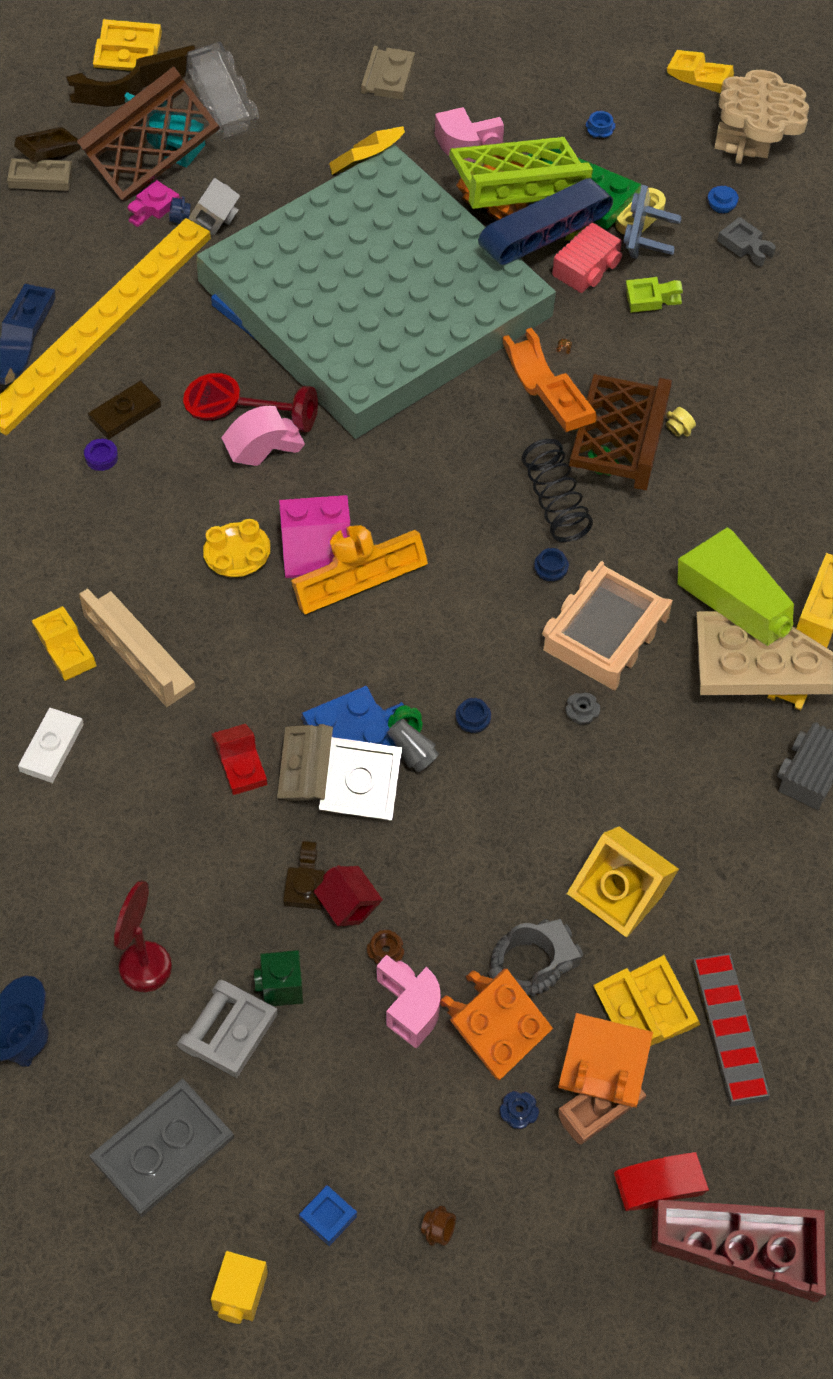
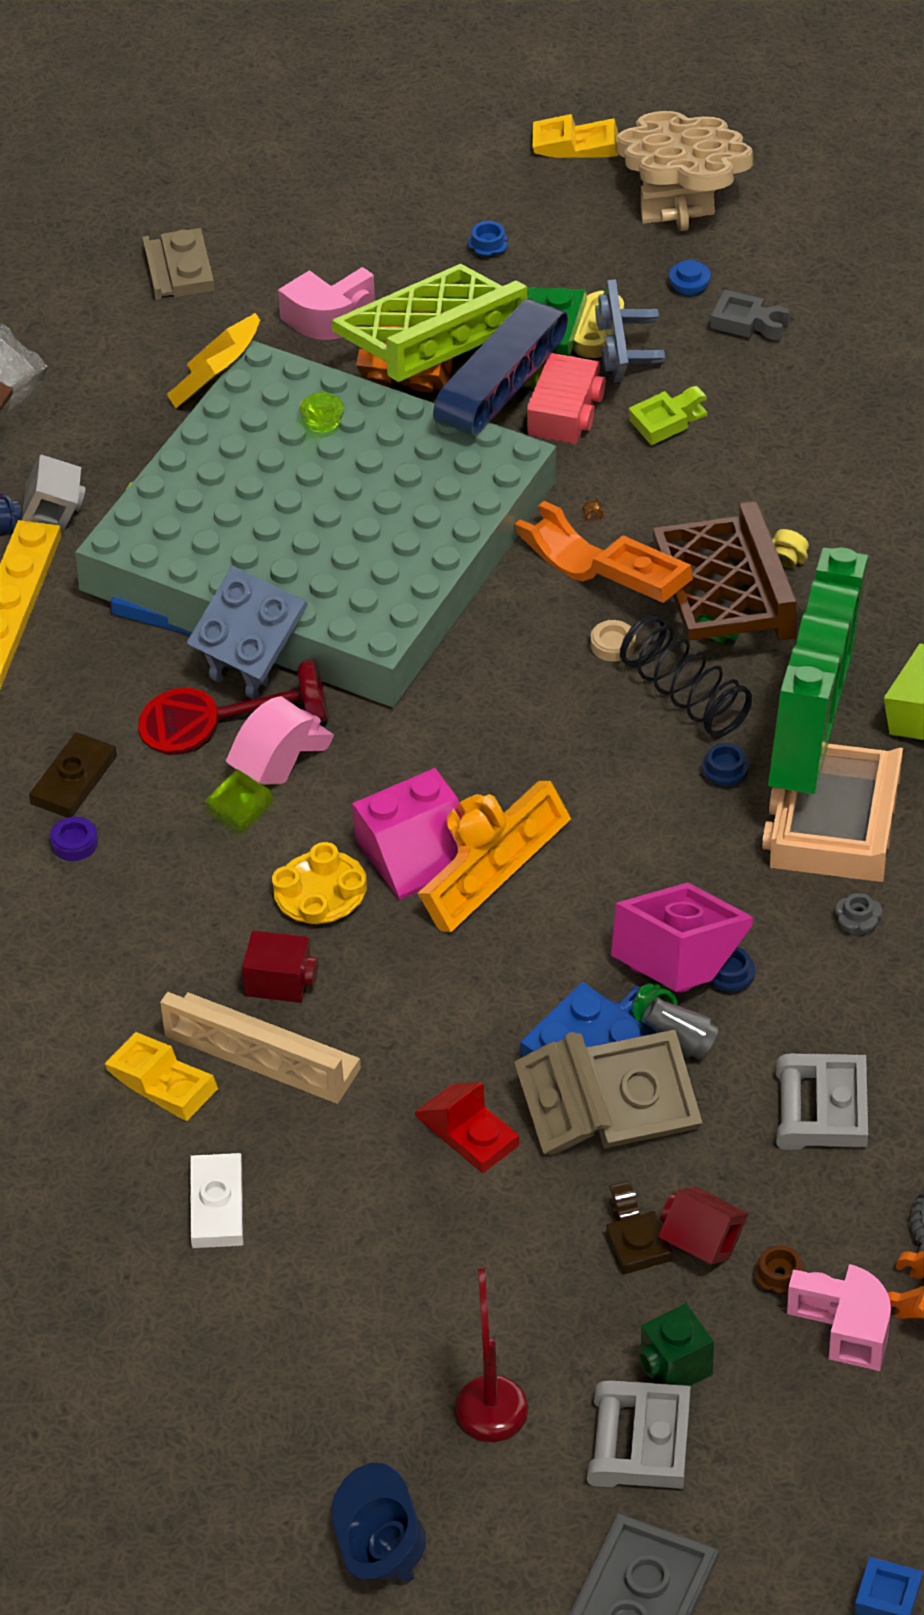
camera: 20 degrees left, 10 degrees down
(176, 596) = (278, 966): none -> dark red brick
(217, 468) = (239, 800): none -> clear neon green plate
(277, 349) = (246, 628): none -> sand blue plate
(407, 212) = (322, 411): none -> clear neon green plate
(445, 677) = (677, 935): none -> dark pink slope
(491, 843) = (839, 1101): none -> light grey plate
(521, 440) = (607, 640): none -> tan tile
(635, 525) = (818, 671): none -> green fence

